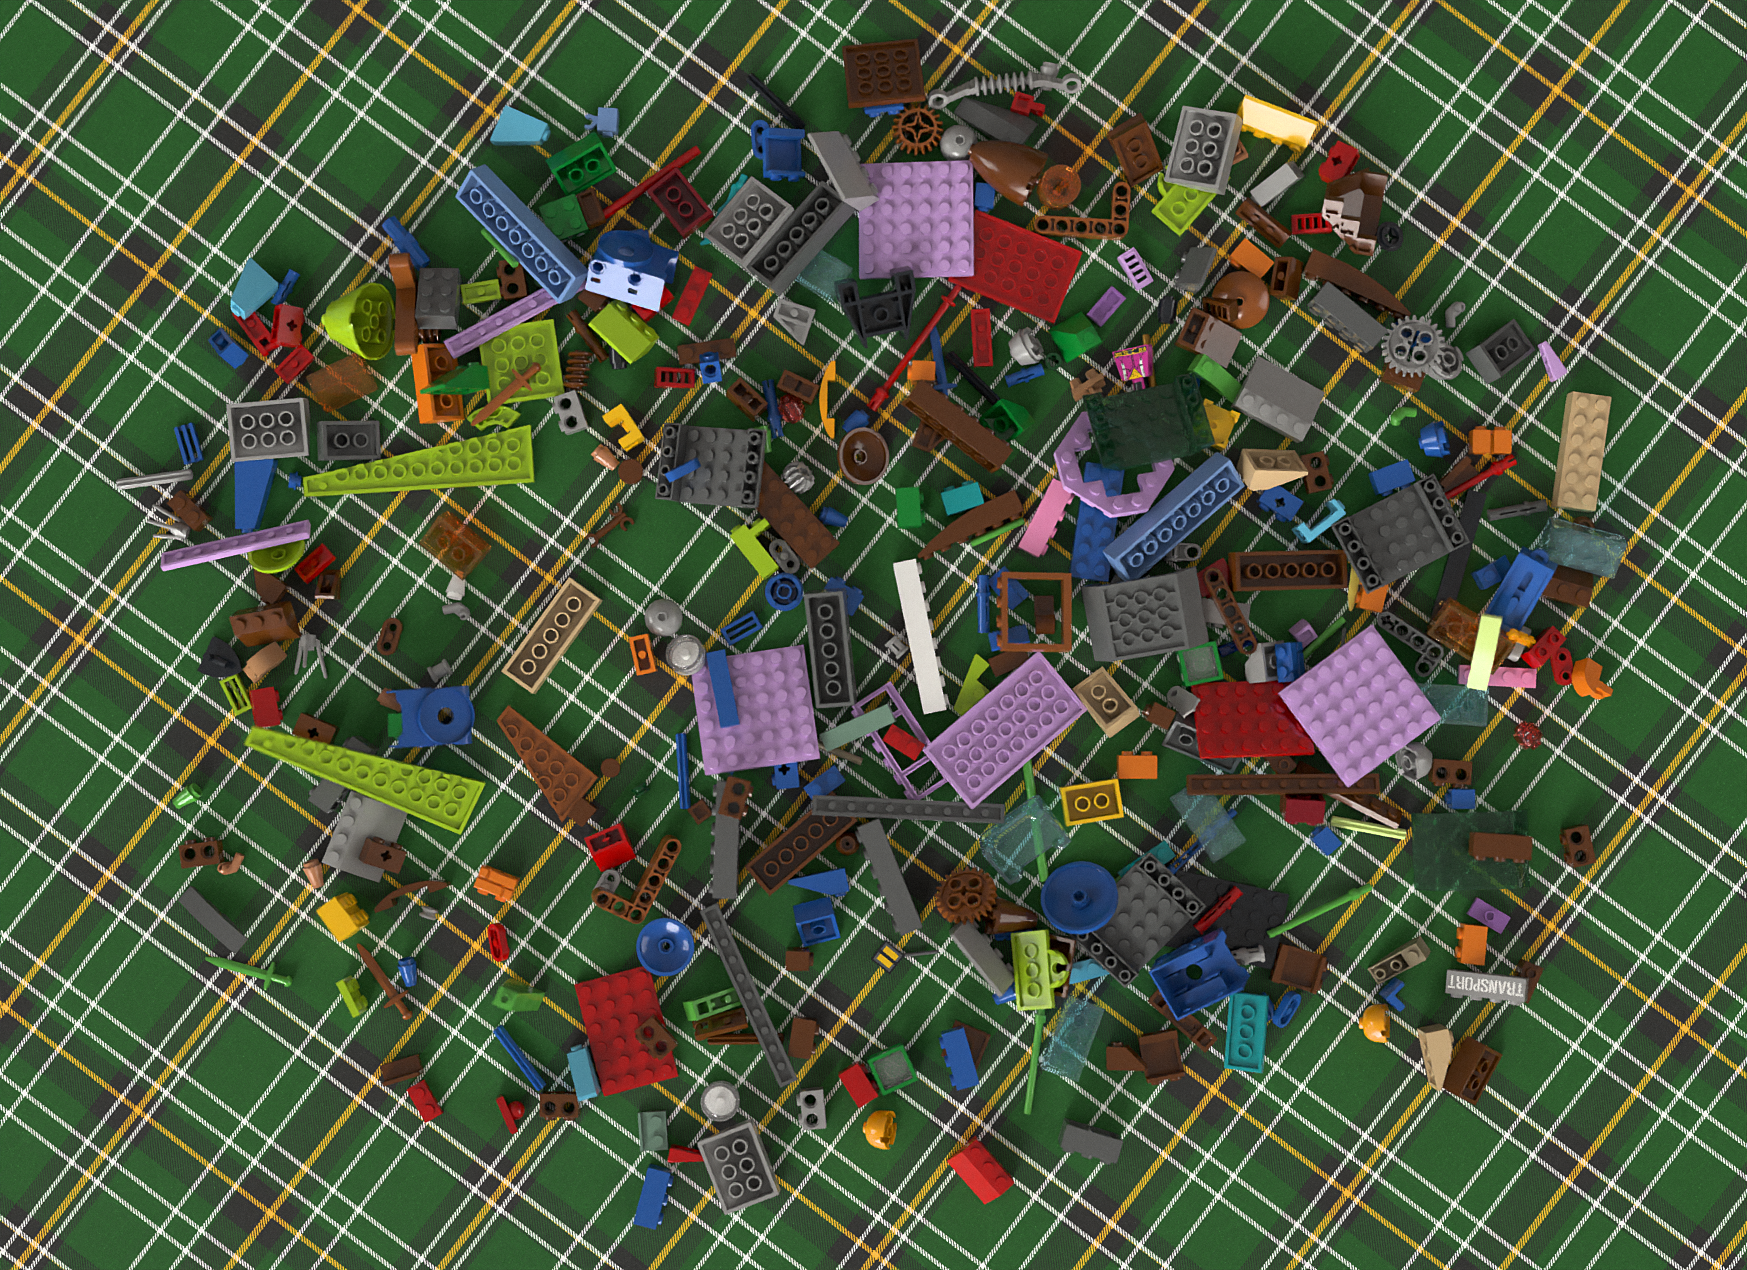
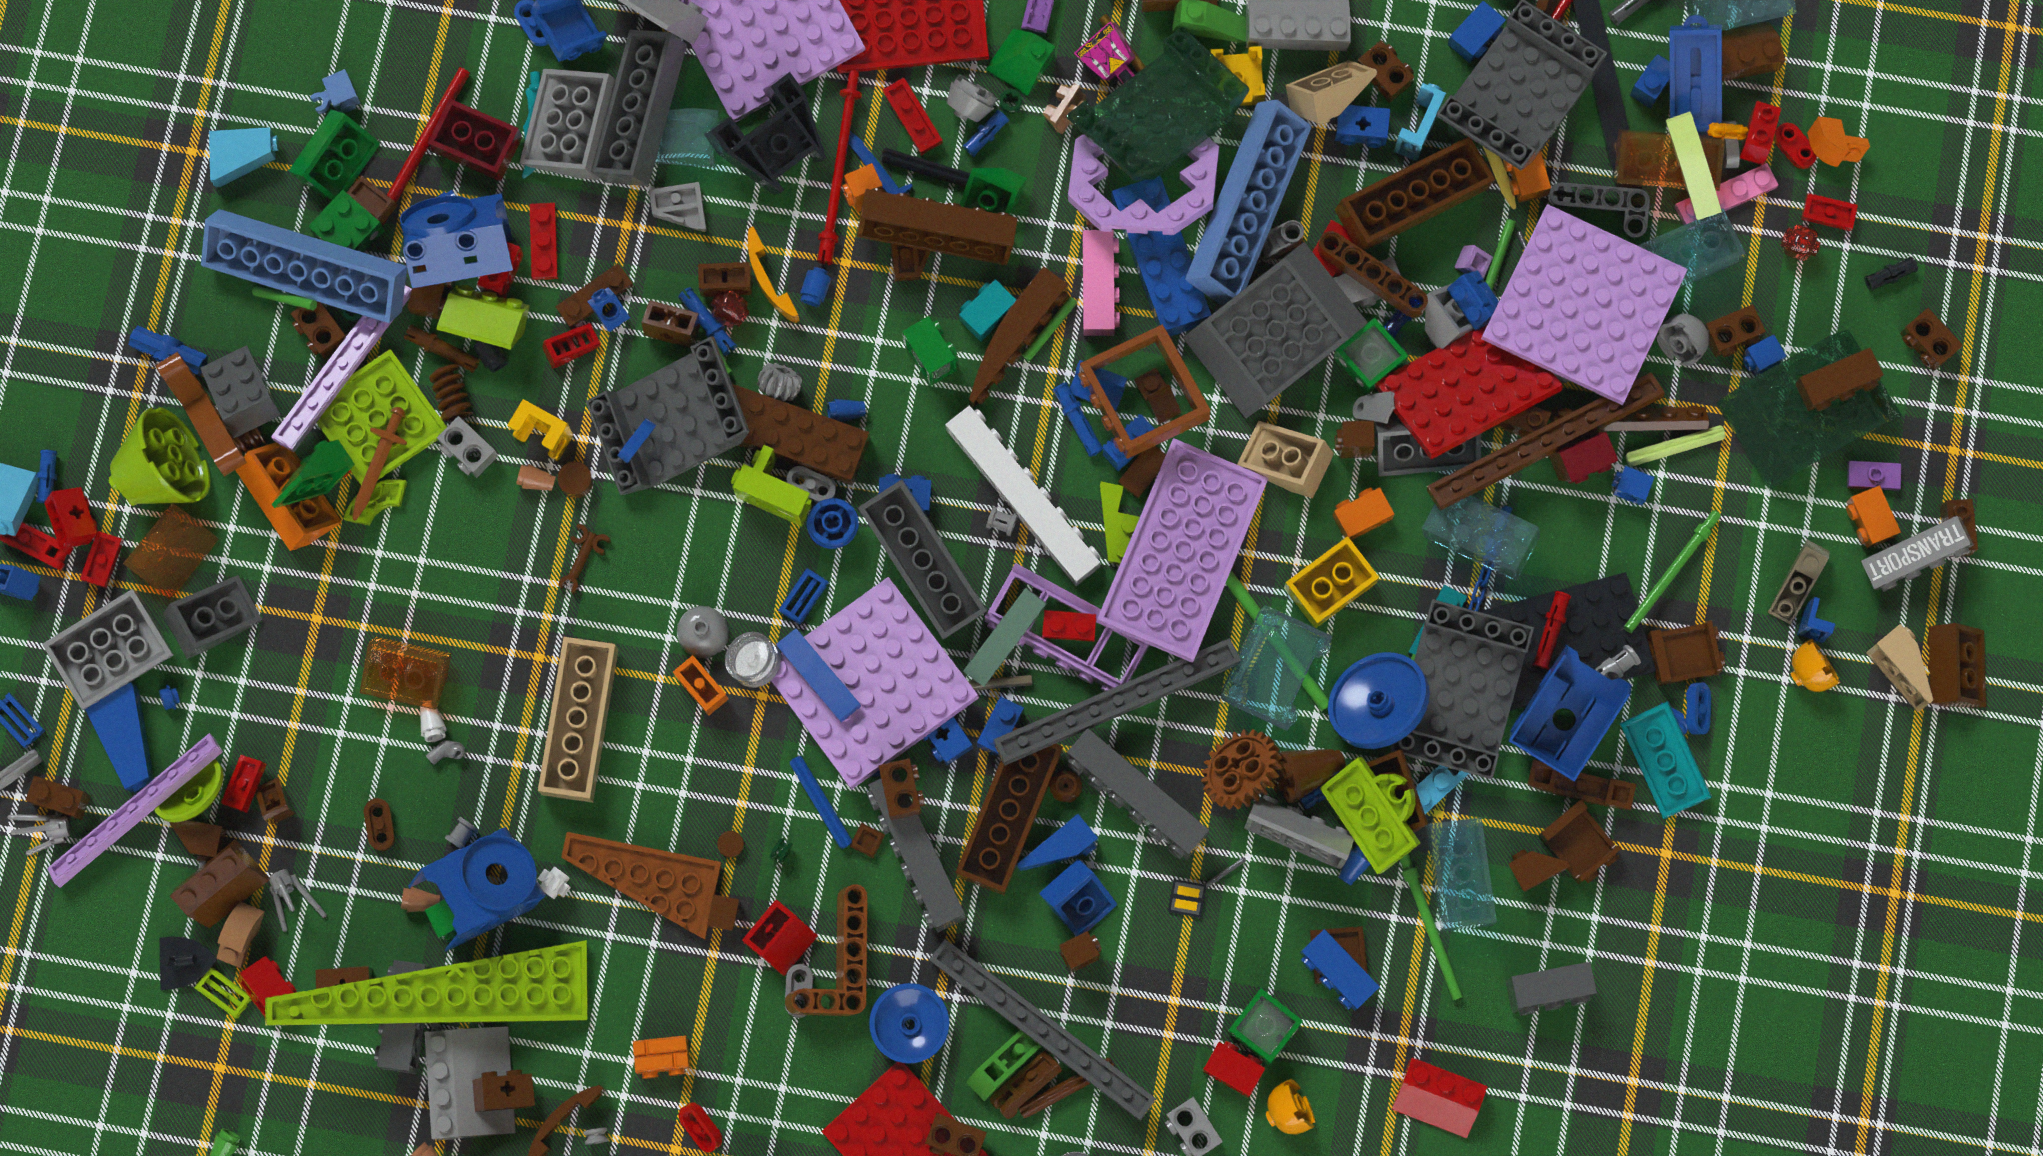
camera: 30 degrees left, 10 degrees down
(473, 462) = (379, 565): lime wing -> none
(480, 291) = (287, 361): lime plate -> none
(483, 734) = (554, 882): none -> white gear
(802, 1037) = (1135, 1047): reddish brown brick -> none
(871, 452) = (851, 312): reddish brown dish -> none
(1559, 724) = (1829, 212): none -> red plate
(1577, 787) = (1891, 273): none -> black pin

